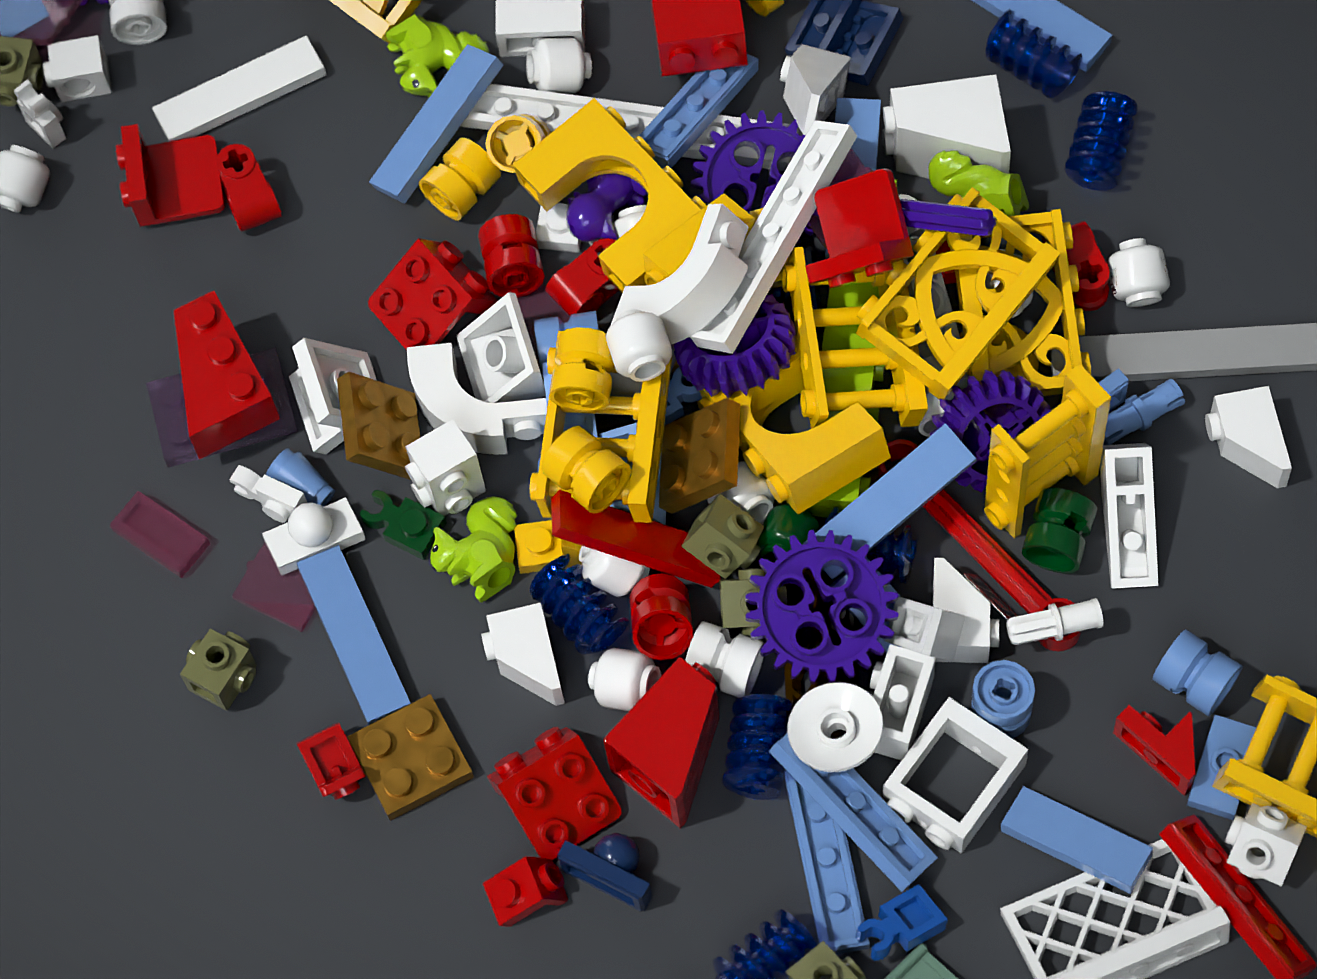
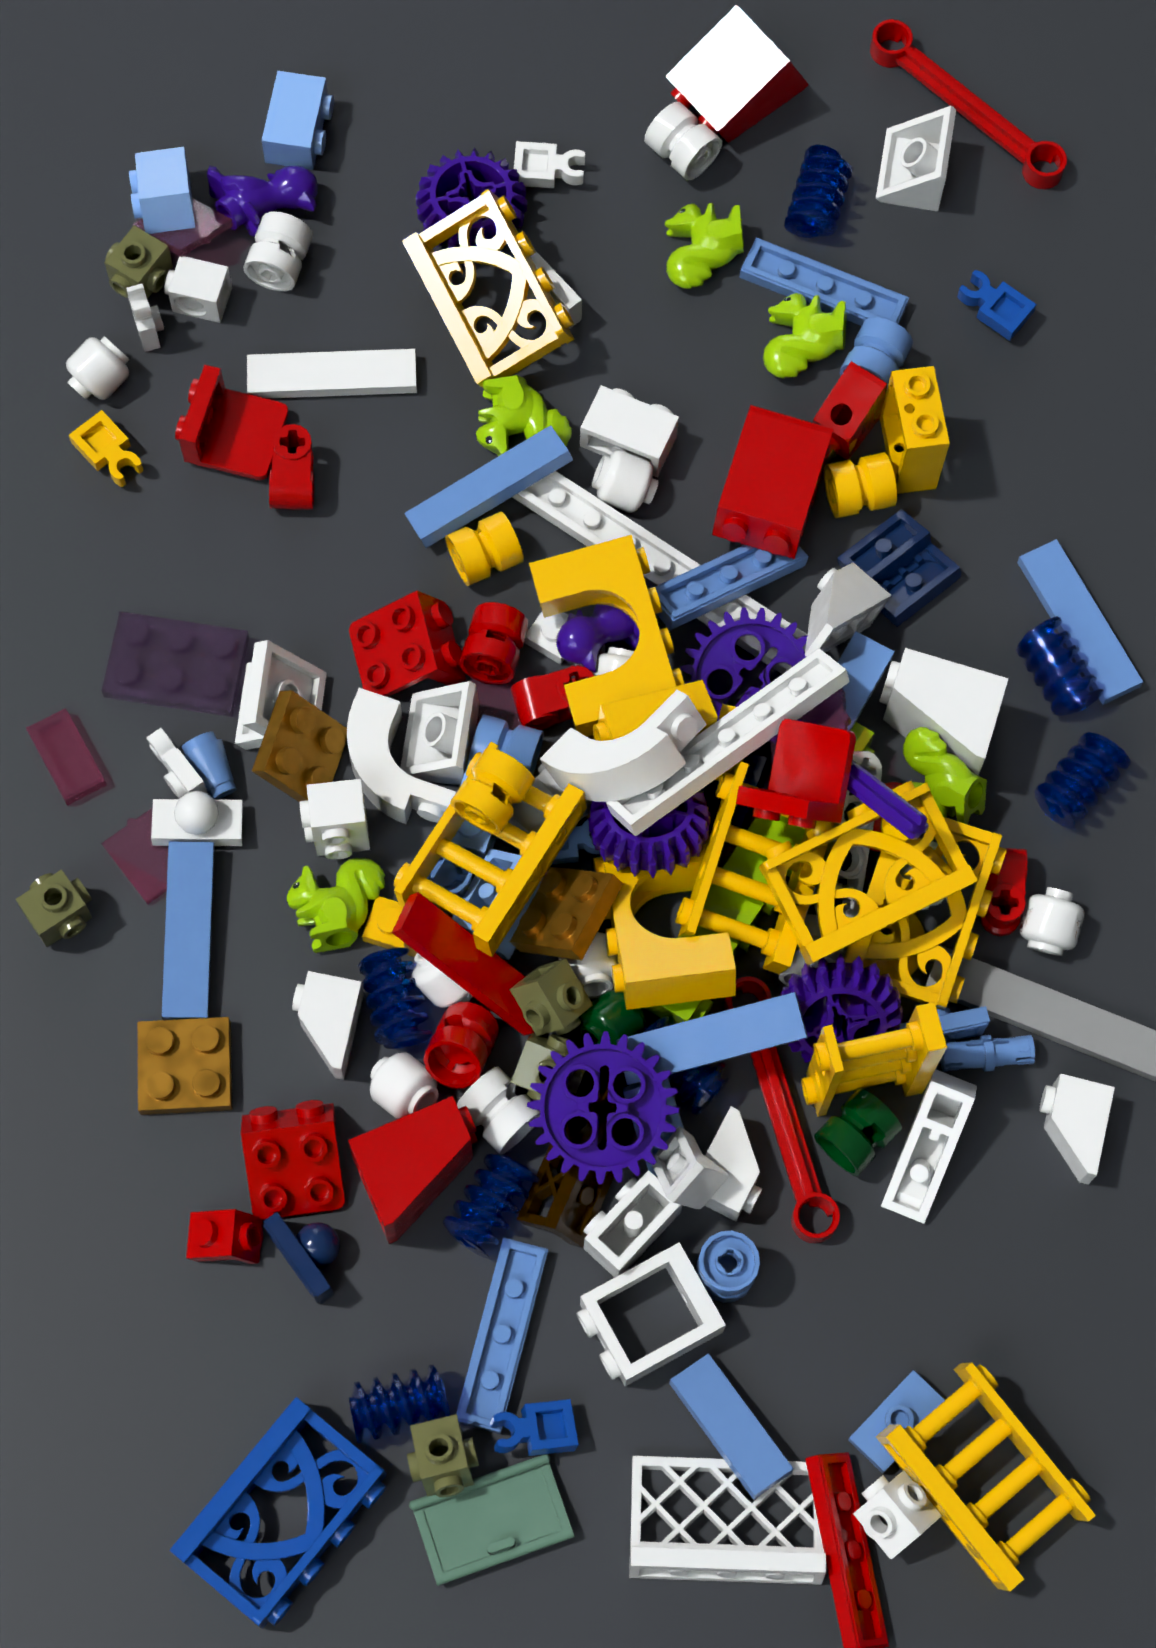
camera: 15 degrees right, 5 degrees up
(57, 242) = (105, 444): none -> yellow plate
(219, 378) = (179, 639): red wedge -> none
(332, 761) = (112, 1039): red bracket -> none
(406, 526) = (285, 850): dark green plate -> none
(513, 138) = (549, 536): yellow wheel -> none
(581, 464) = (448, 882): yellow wheel -> none
(639, 345) = (550, 793): white head -> none
(830, 709) = (556, 1205): white dish -> none
(862, 816) = (546, 1300): medium blue plate -> none
(1004, 609) = (768, 1166): sticker -> none
(1055, 622) = (808, 1217): white axle -> none
(1168, 755) = (852, 1388): red slope -> none
(1193, 670) = (918, 1329): medium blue wheel -> none

